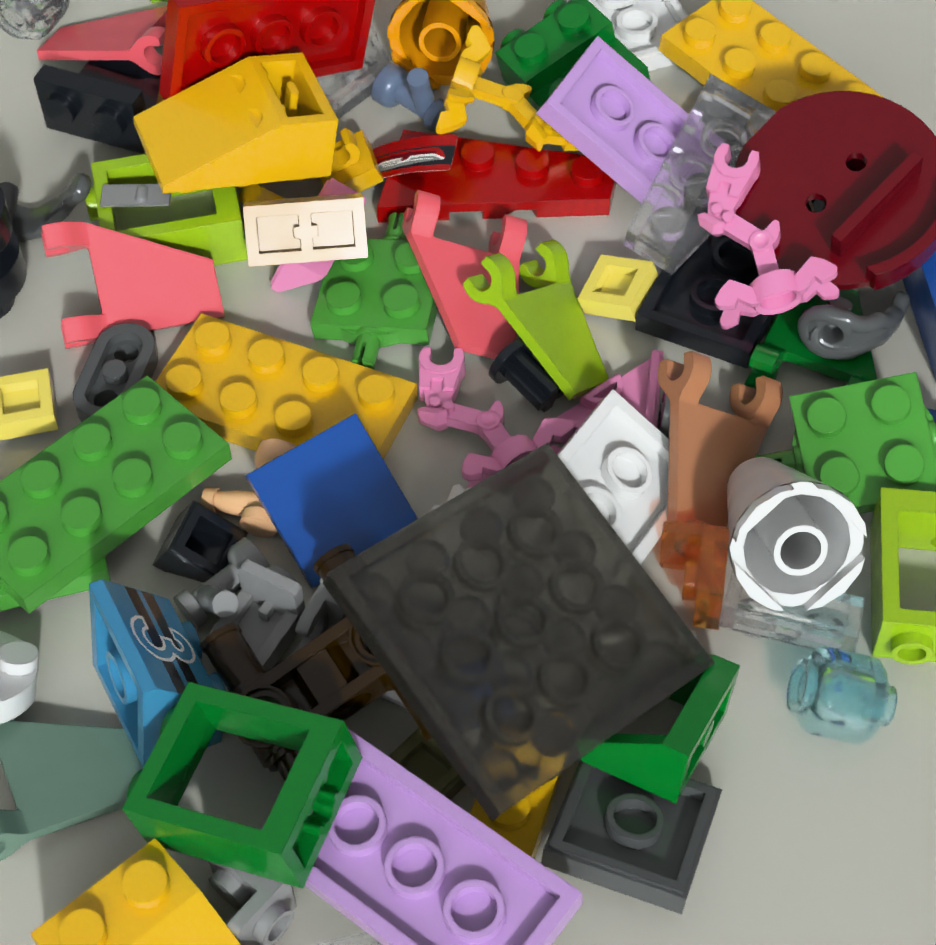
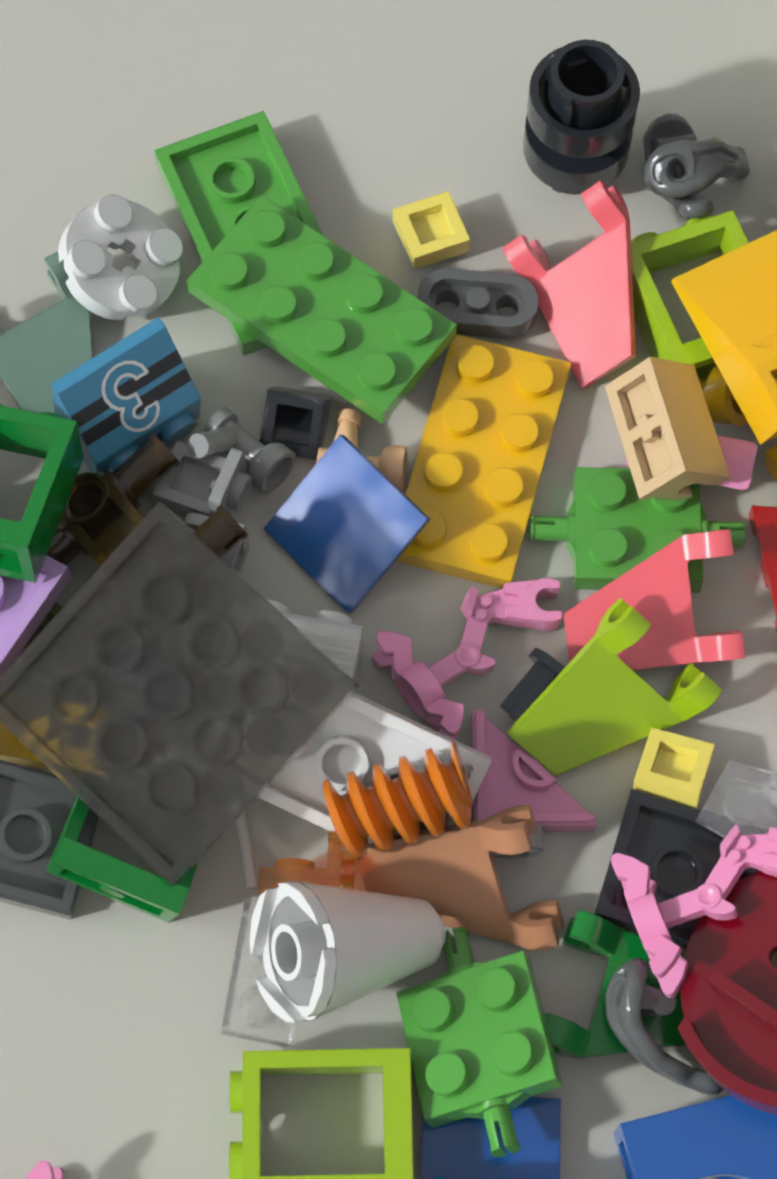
camera: 80 degrees right, 15 degrees up
(39, 184) = (692, 166): none -> dark grey piece
(133, 195) = (687, 249): light grey piece -> none
(649, 450) = (400, 803): none -> orange piece
(841, 695) = (174, 1021): clear light blue head -> none

